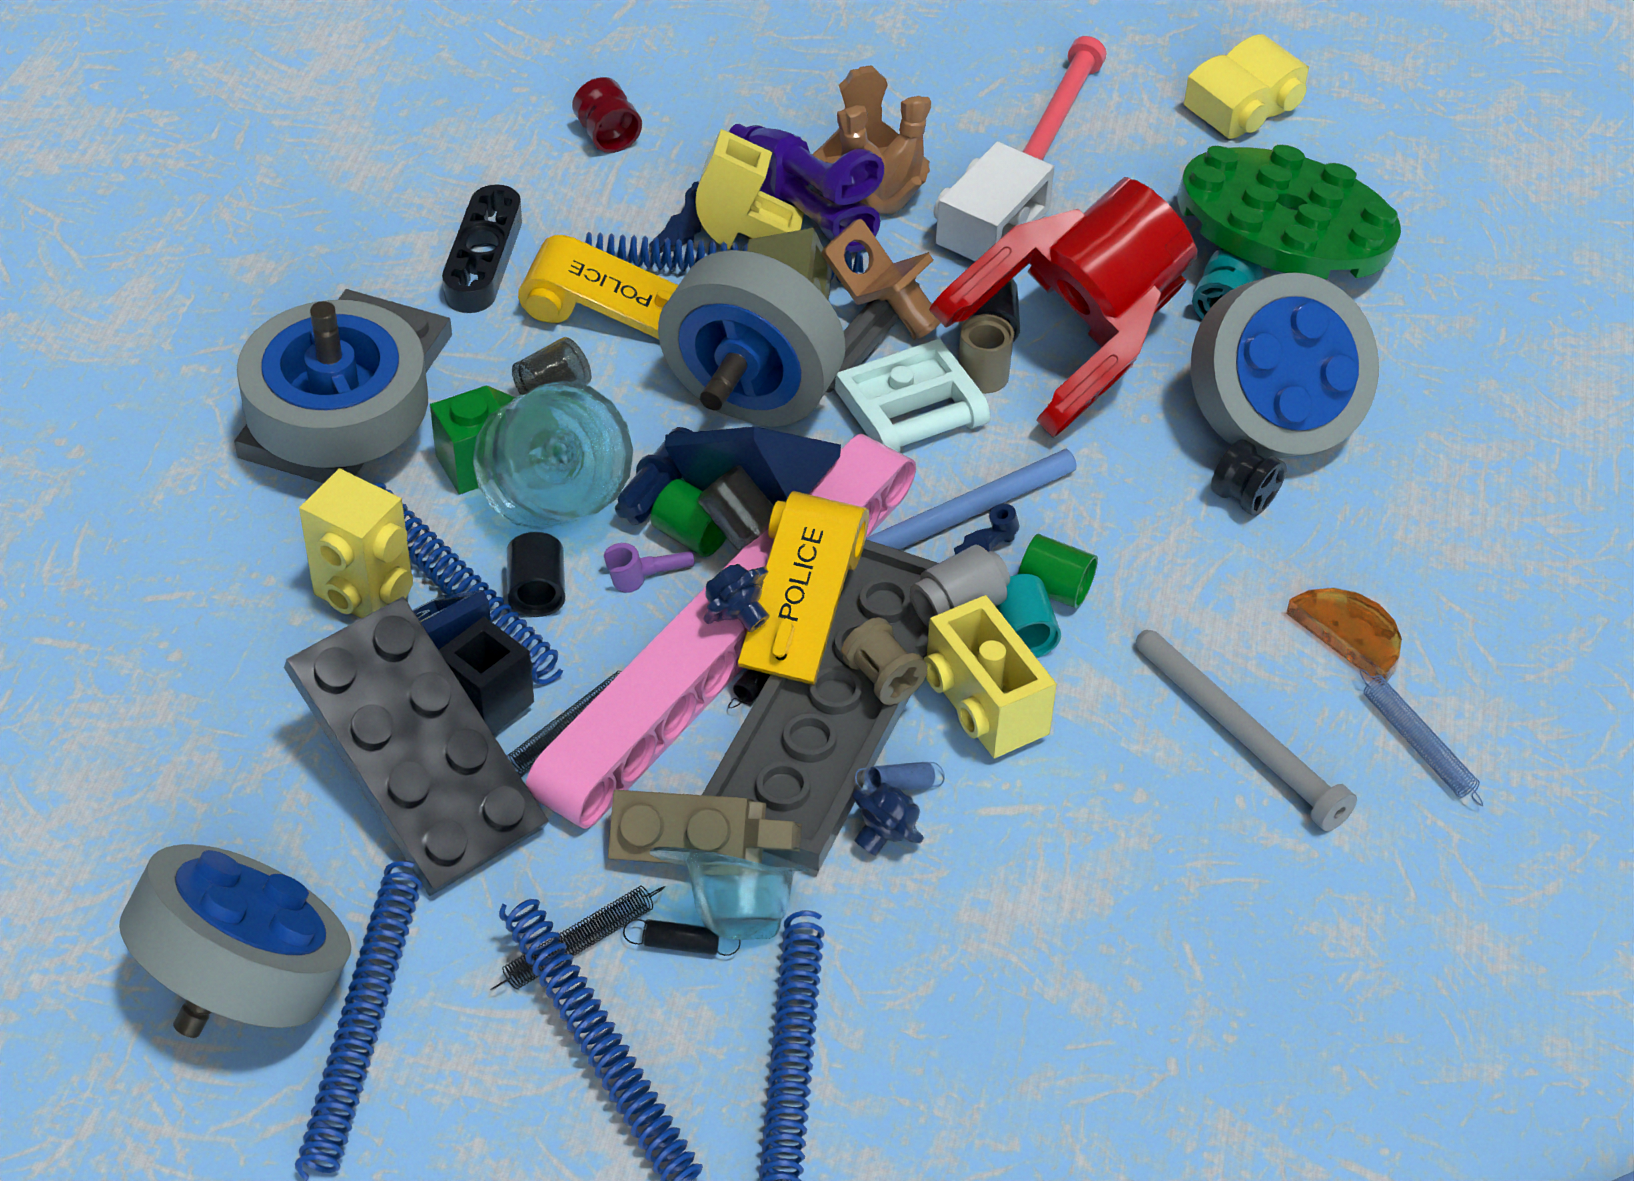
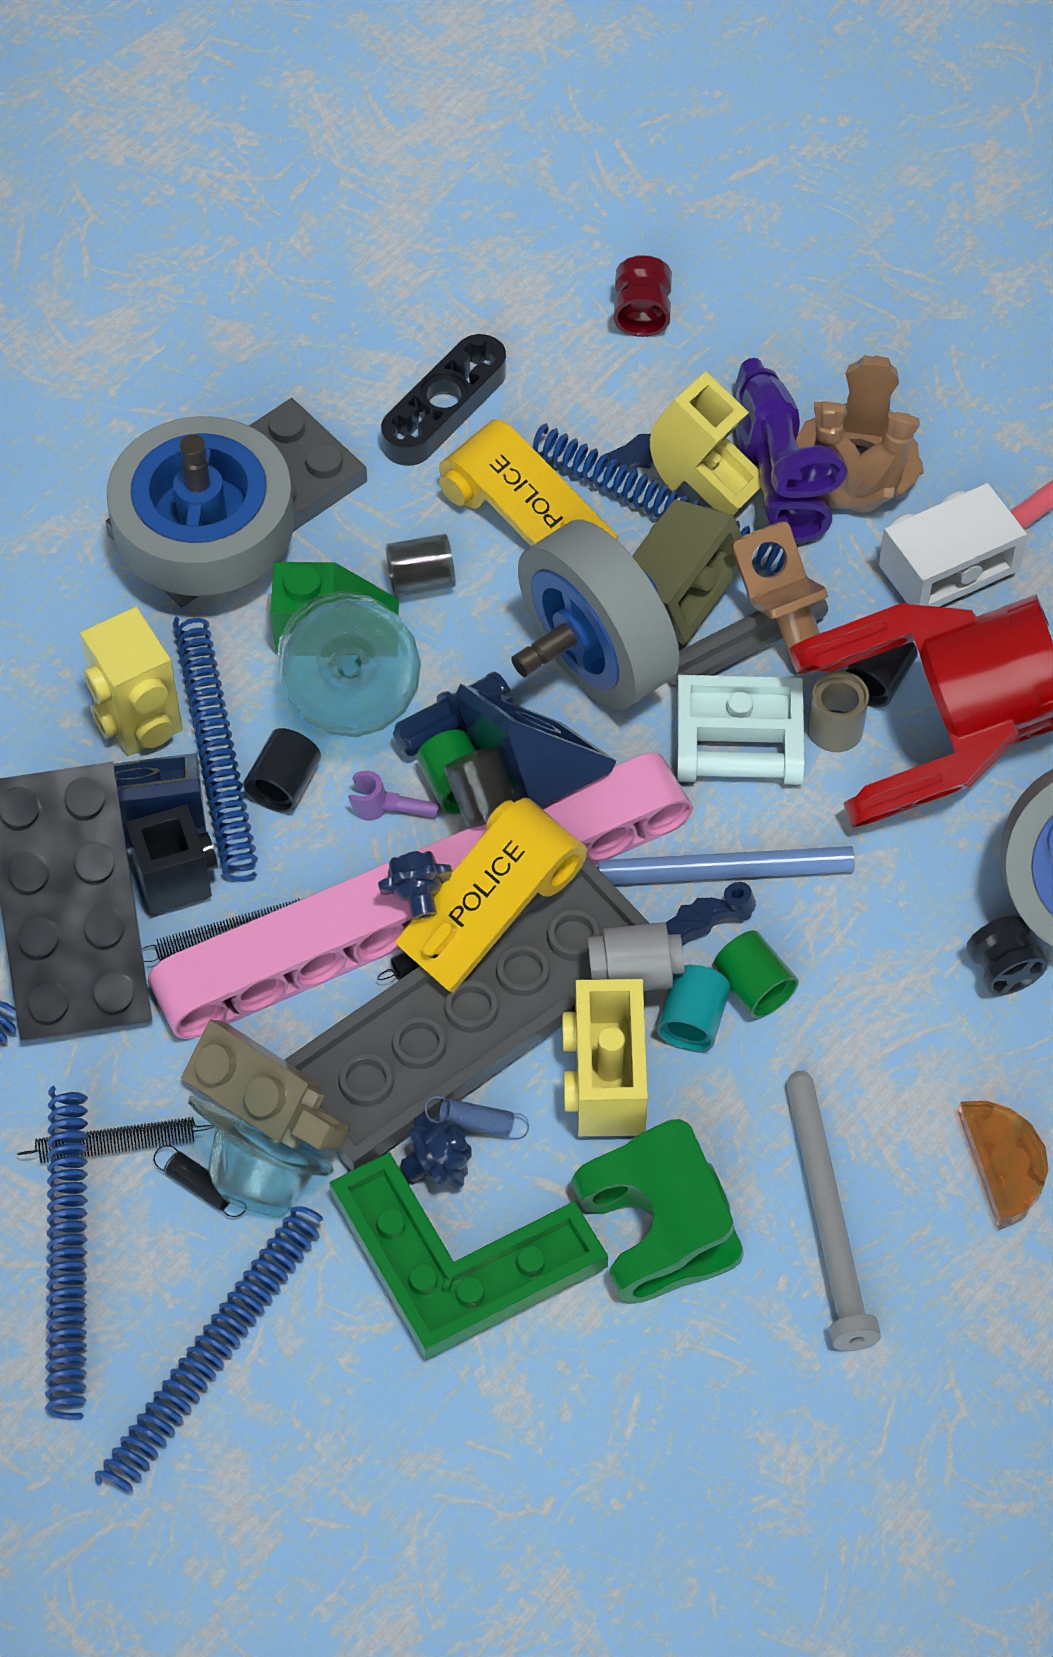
camera: 30 degrees right, 10 degrees up
(884, 661) = (517, 1001): dark tan bush -> none
(961, 934) = (457, 1299): none -> green plate
(1124, 757) = (692, 1217): none -> green piece
(1447, 763) = (992, 1306): medium blue piece -> none

